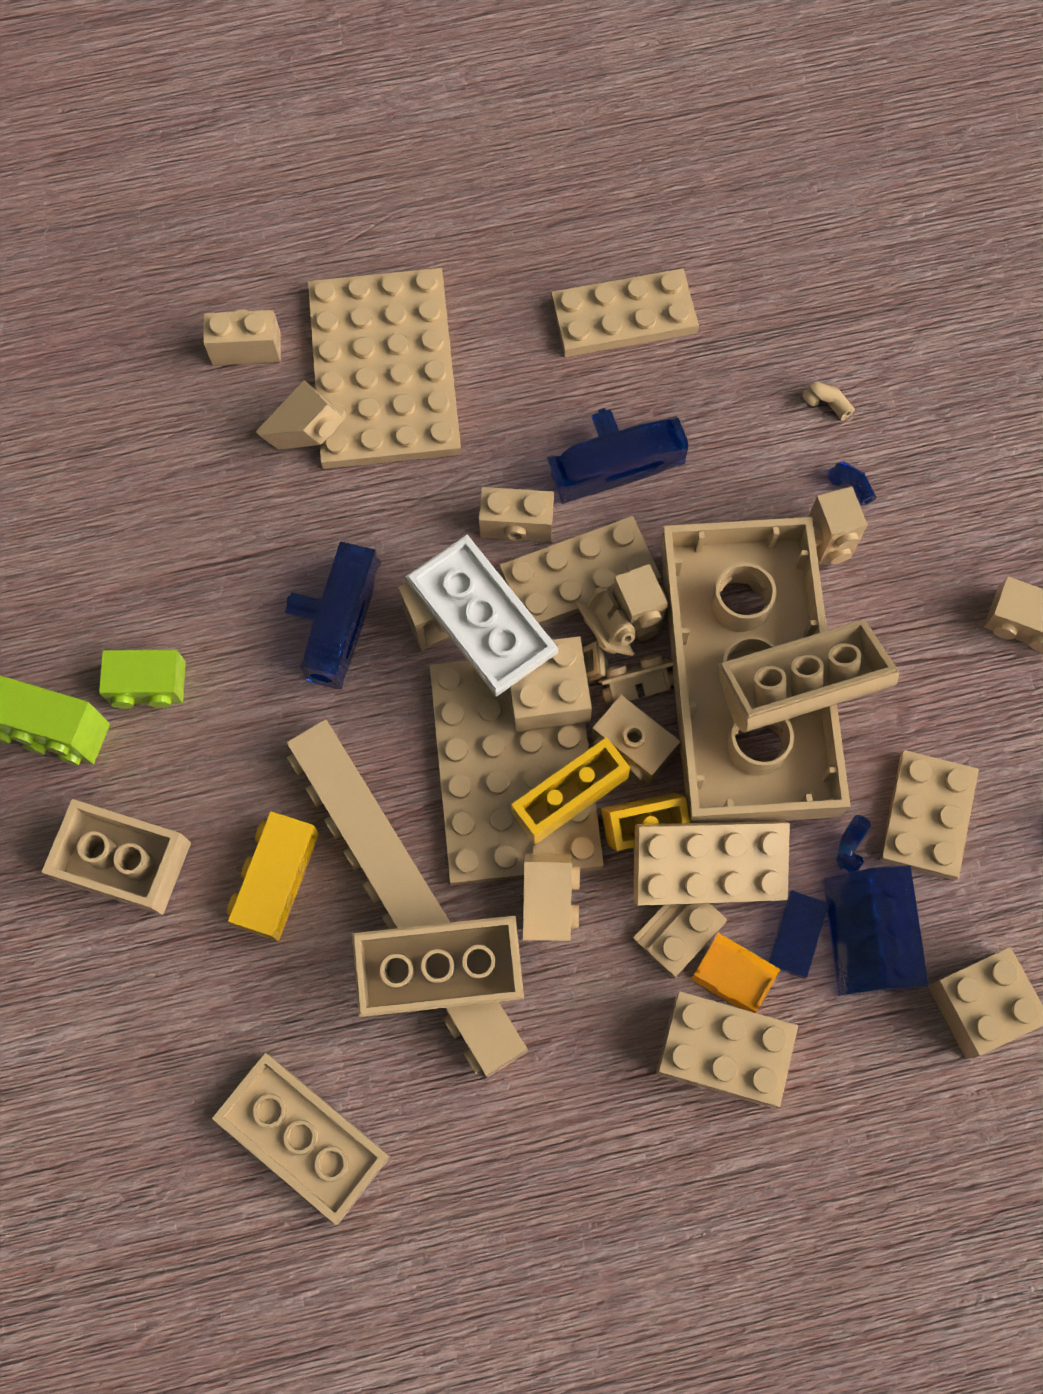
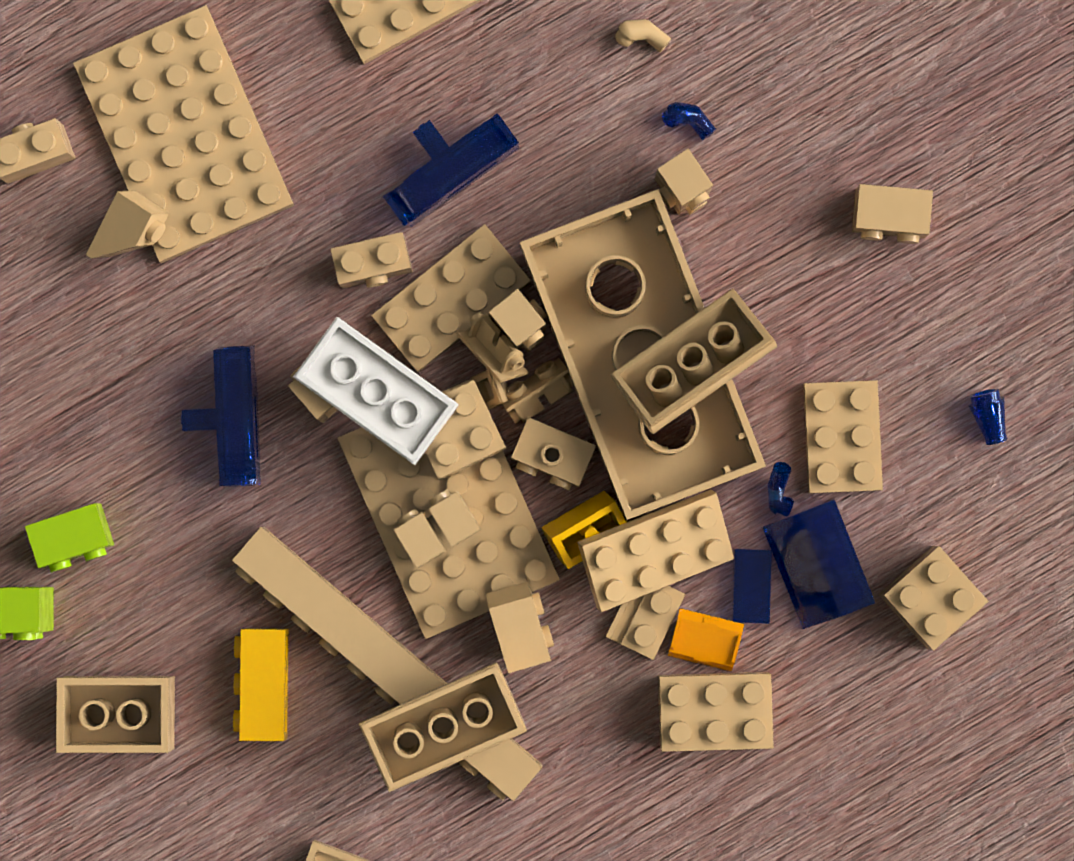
camera: 15 degrees left, 15 degrees up
(498, 772) = (437, 528): none -> tan piece
(570, 791) = (509, 528): yellow brick -> none

